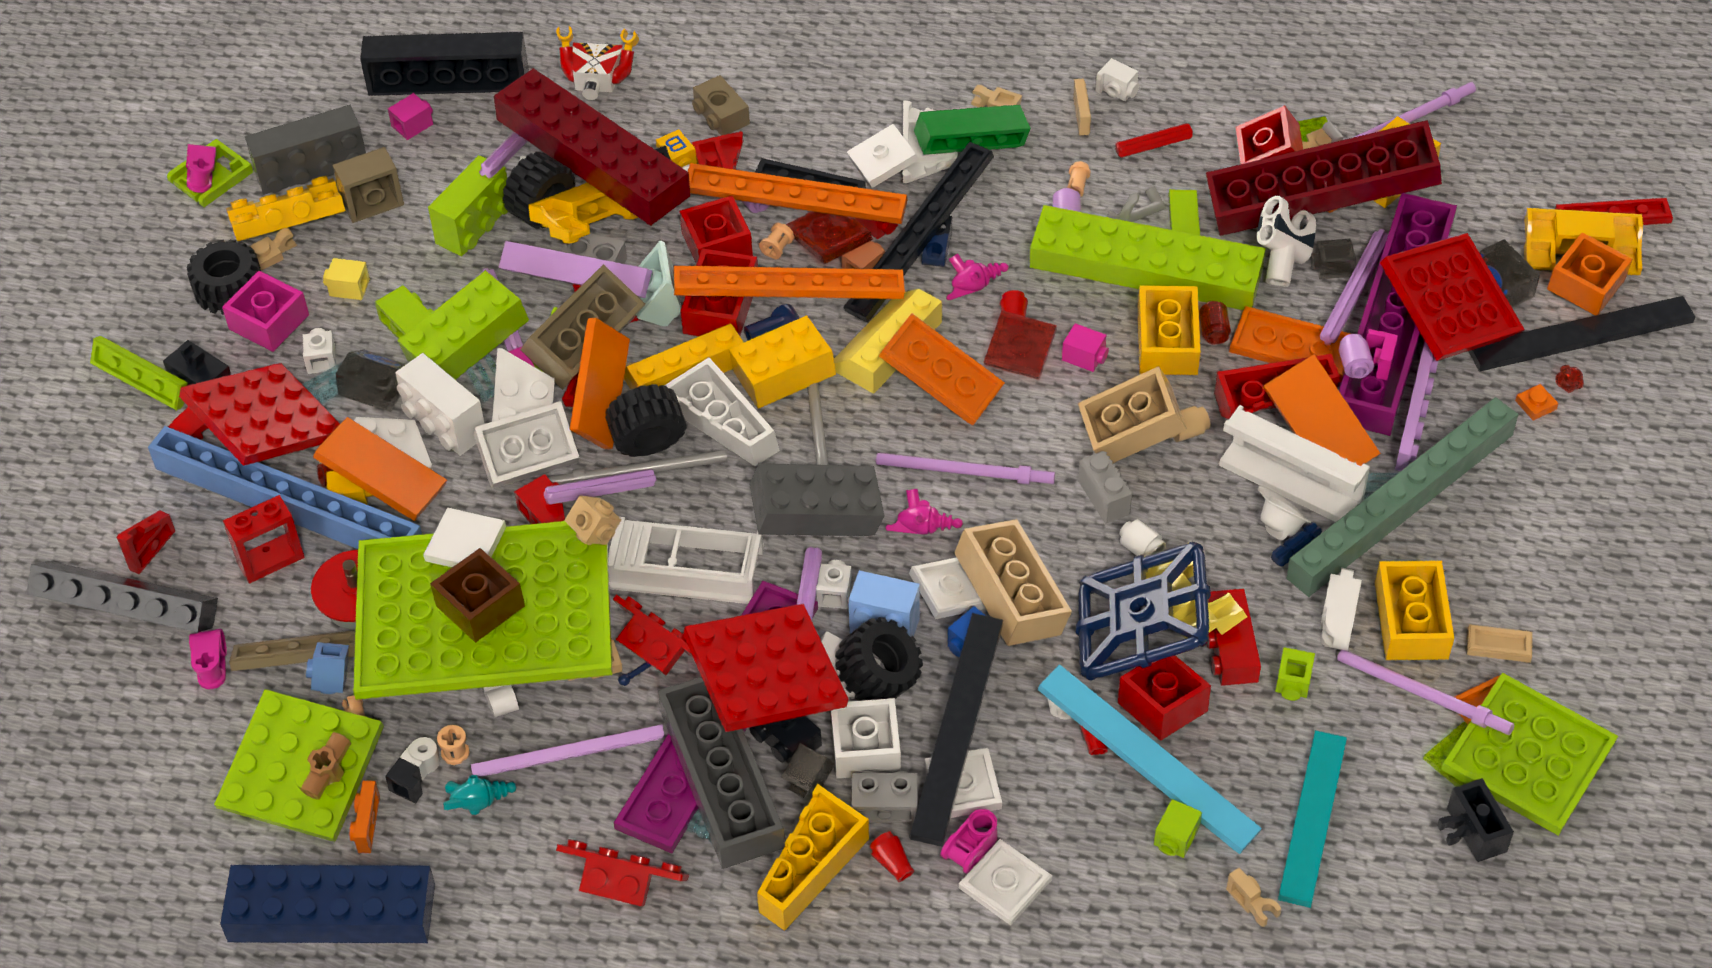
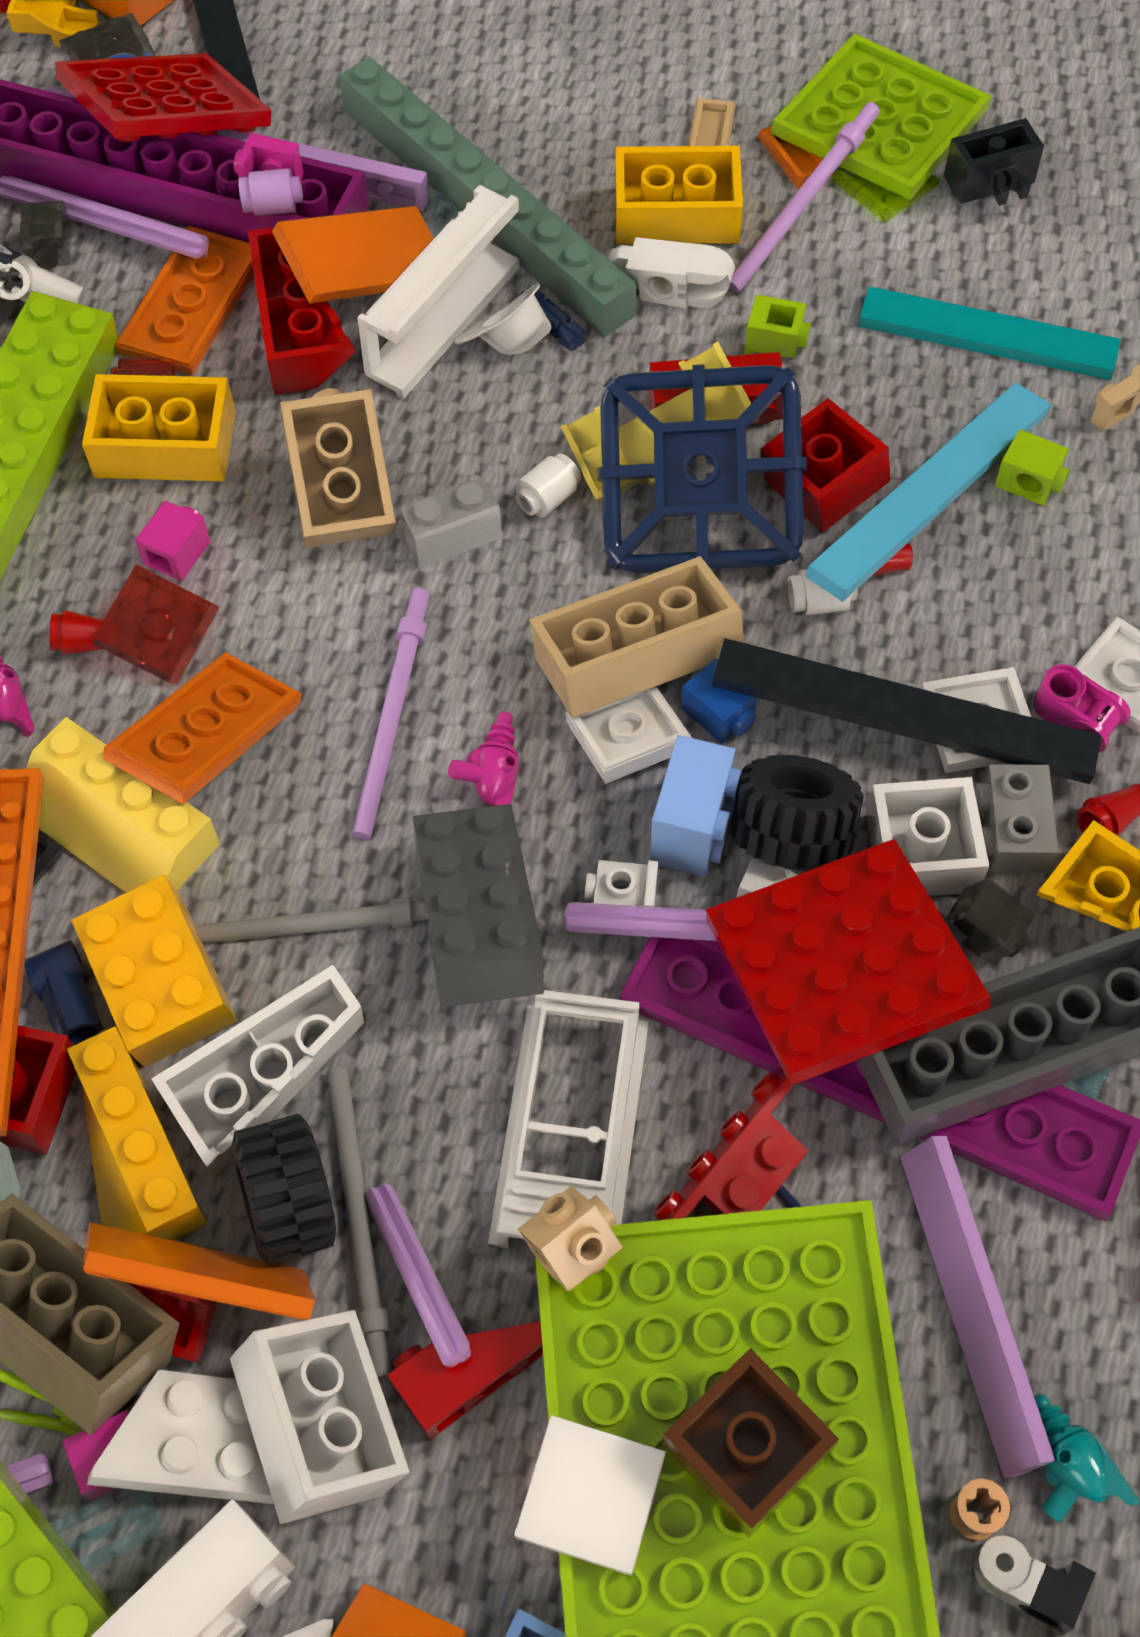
camera: 90 degrees left, 10 degrees up
(1536, 402) = (325, 59): orange plate -> none
(1571, 376) = (292, 19): clear red plate -> none

